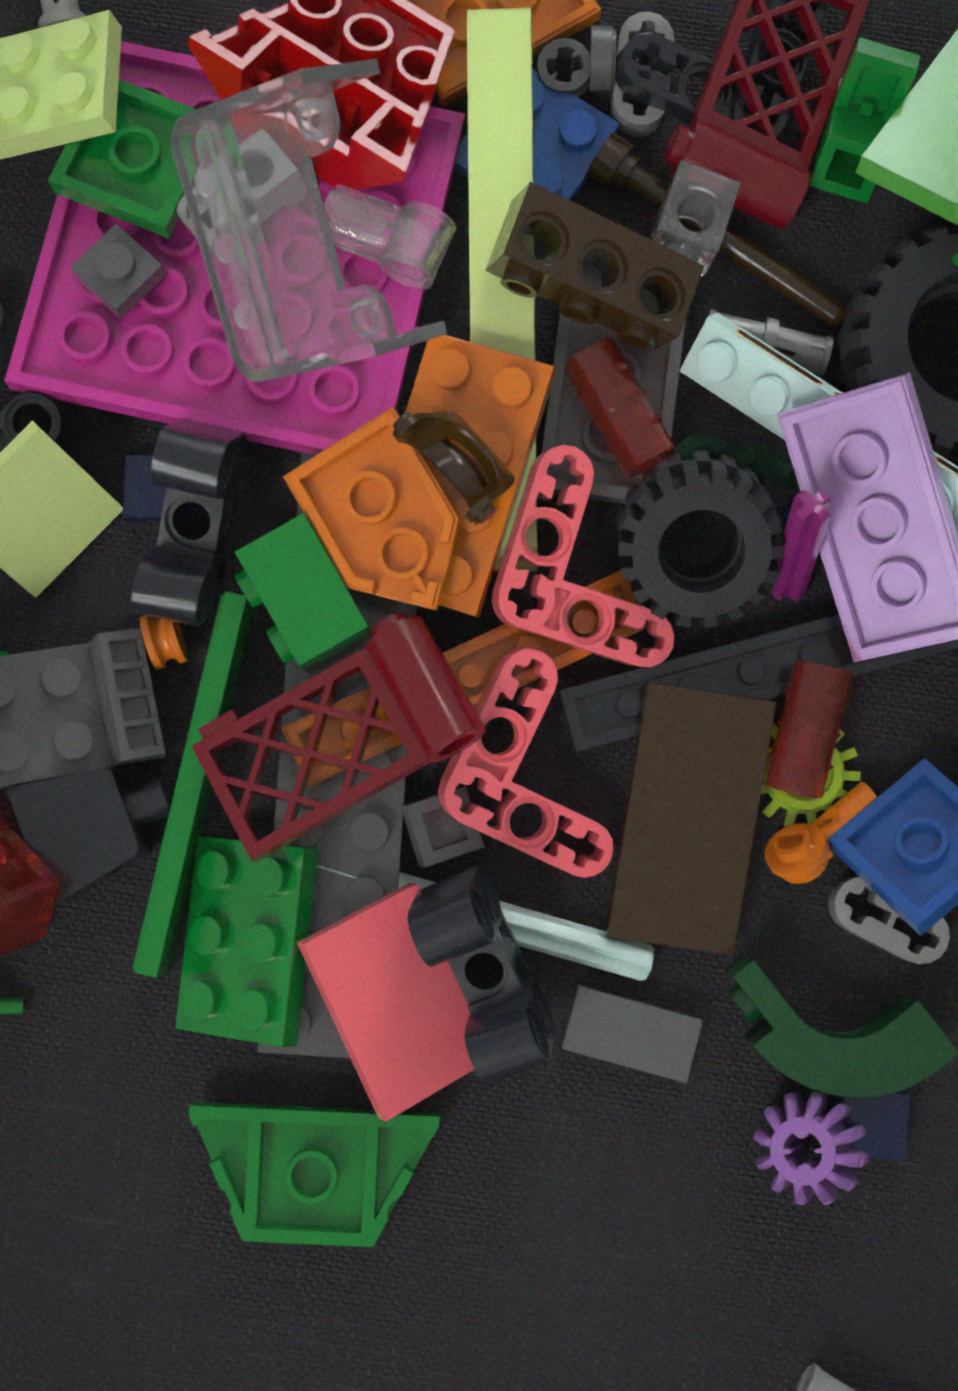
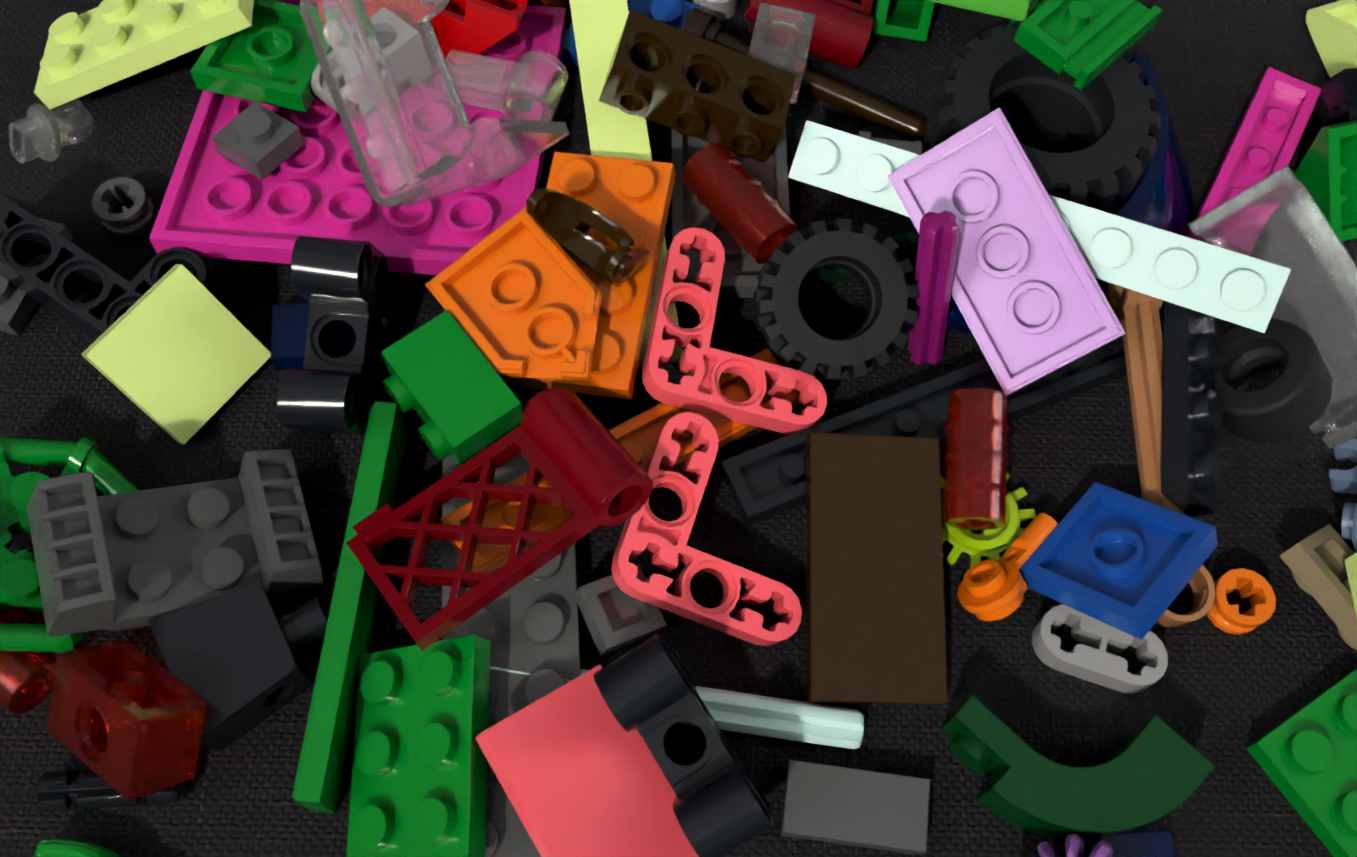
camera: 10 degrees left, 20 degrees down
(163, 641) = (316, 463): orange bush -> none

